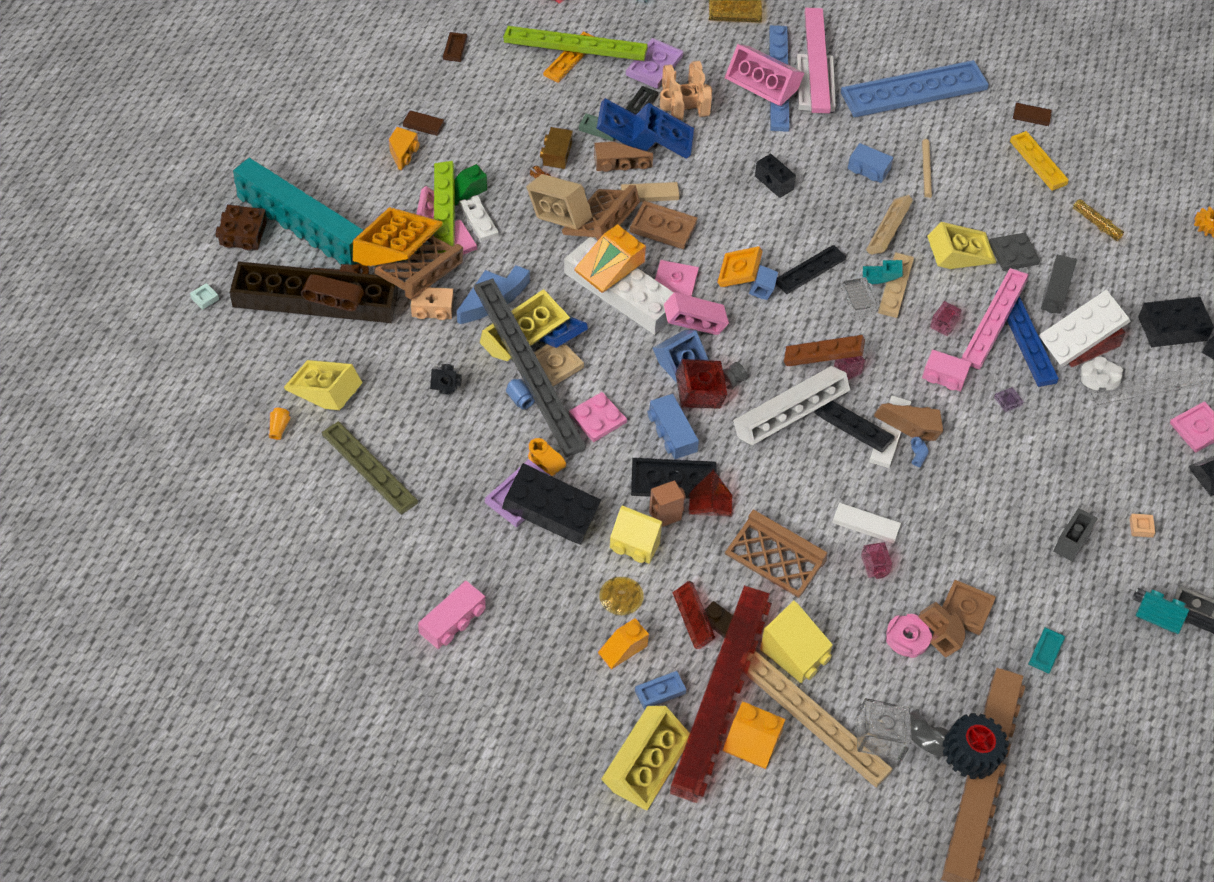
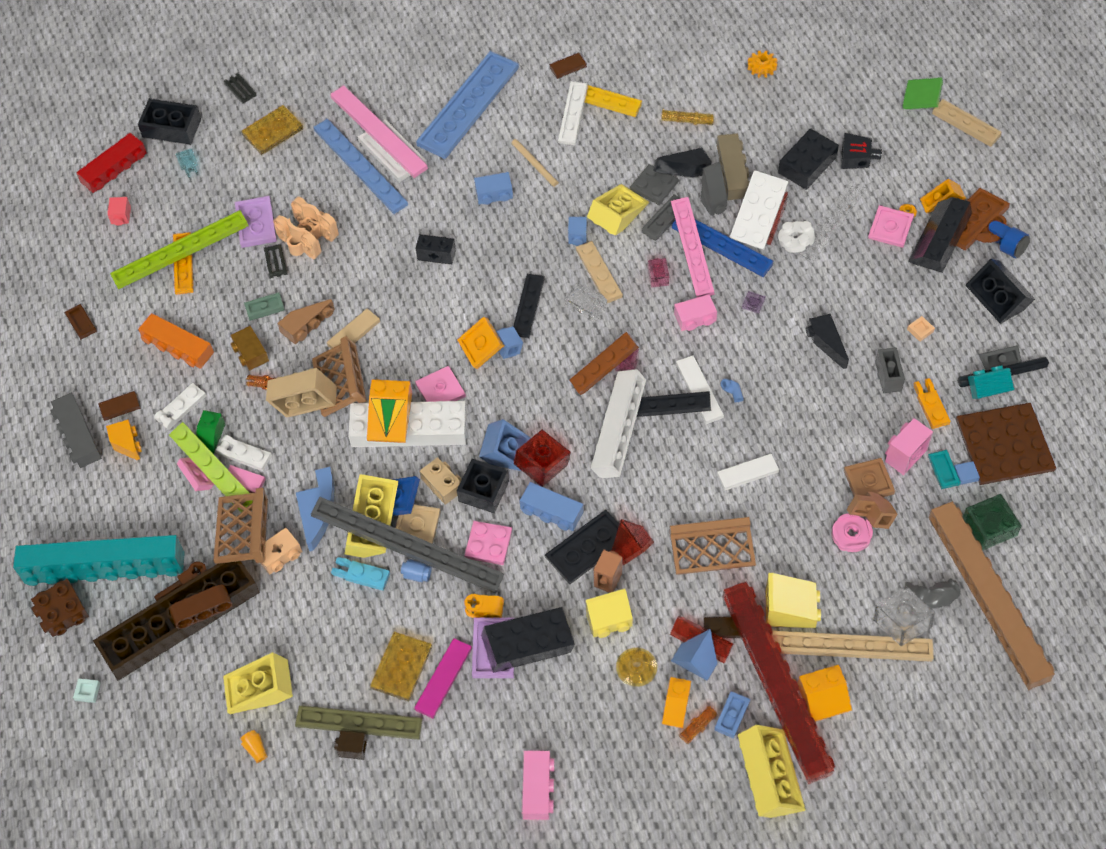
camera: 35 degrees left, 5 degrees up
(346, 477) = (351, 745): none -> dark brown brick
(374, 116) = (75, 430): none -> dark grey brick
(393, 237) = (203, 521): light orange slope -> none
(438, 381) = (350, 605): black brick -> none
(439, 452) = (401, 666): none -> clear yellow plate
(462, 485) = (443, 678): none -> dark pink tile
(467, 153) = (180, 406): none -> white plate
(479, 366) = (362, 573): none -> medium azure hinge
(508, 106) = (175, 341): none -> orange brick
(606, 344) = (440, 480): none -> tan brick
(633, 370) = (483, 485): none -> black brick
(641, 675) = (698, 725): none -> clear orange pin
(645, 128) = (304, 282): blue bracket -> none
(663, 224) = (390, 351): medium nougat plate -> none
(678, 625) = (697, 655): none -> medium blue slope
(696, 313) = (487, 405): bright pink brick -> none
(734, 374) = (556, 429): dark grey wheel -> none
(763, 74) = (351, 172): bright pink slope -> none
(876, 560) = (782, 495): clear pink brick -> none
(887, 272) = (584, 270): teal slope -> none
(889, 225) = (552, 228): tan plate -> none
(908, 240) = (577, 230): none -> medium blue brick
(912, 420) = (714, 369): medium nougat slope -> none
(975, 746) = (976, 578): black wheel -> none
(987, 282) = (660, 221): none -> dark grey plate
(997, 151) = (573, 113): none -> white tile
(1028, 603) = (908, 446): none -> bright pink brick
(1044, 470) = (826, 337): none -> black slope
(1045, 721) = (992, 521): none -> clear green brick
(1048, 246) = (685, 163): none -> black slope
(1064, 668) = (967, 472): none -> medium blue tile
(1089, 593) = (931, 405): none -> light orange hinge
(1102, 277) = (733, 165): none -> dark tan brick
(1127, 673) = (1005, 443): none -> reddish brown plate

